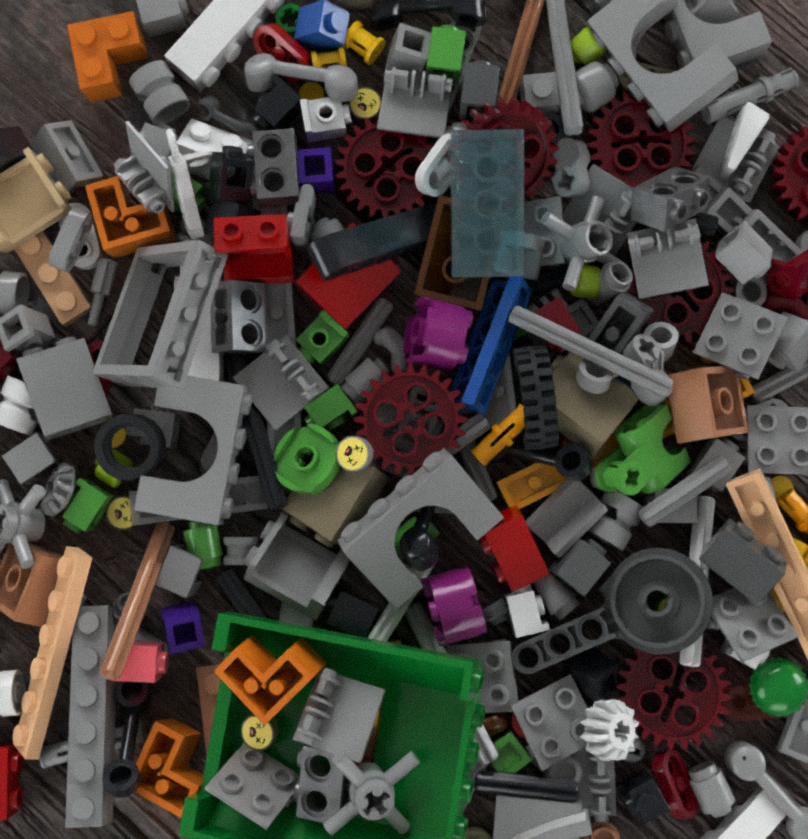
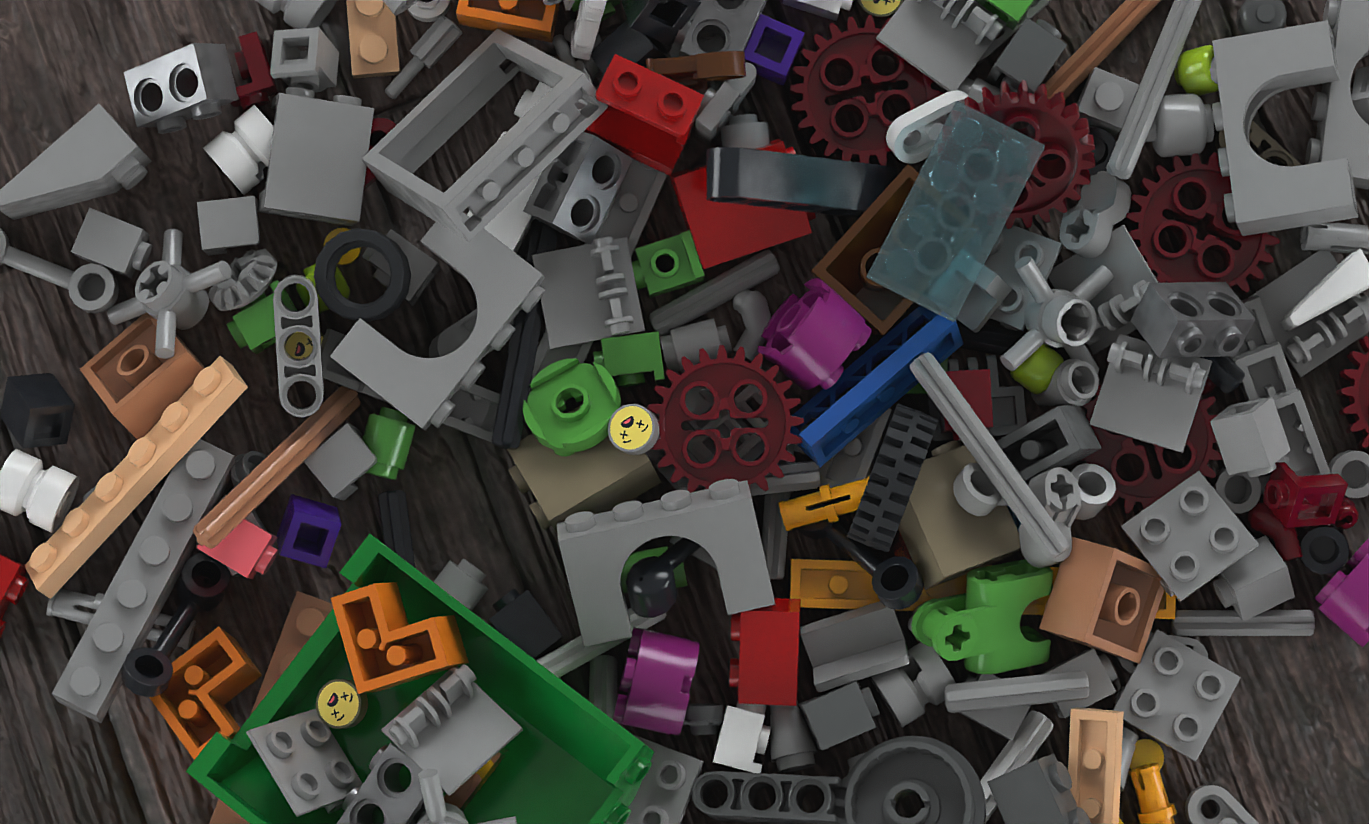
camera: 20 degrees right, 0 degrees up
(112, 530) = (292, 369): none -> light grey beam
(238, 549) = (428, 475): light grey wheel -> none
(277, 199) = (701, 68): none -> reddish brown piece
(294, 568) = (485, 532): light grey panel -> none

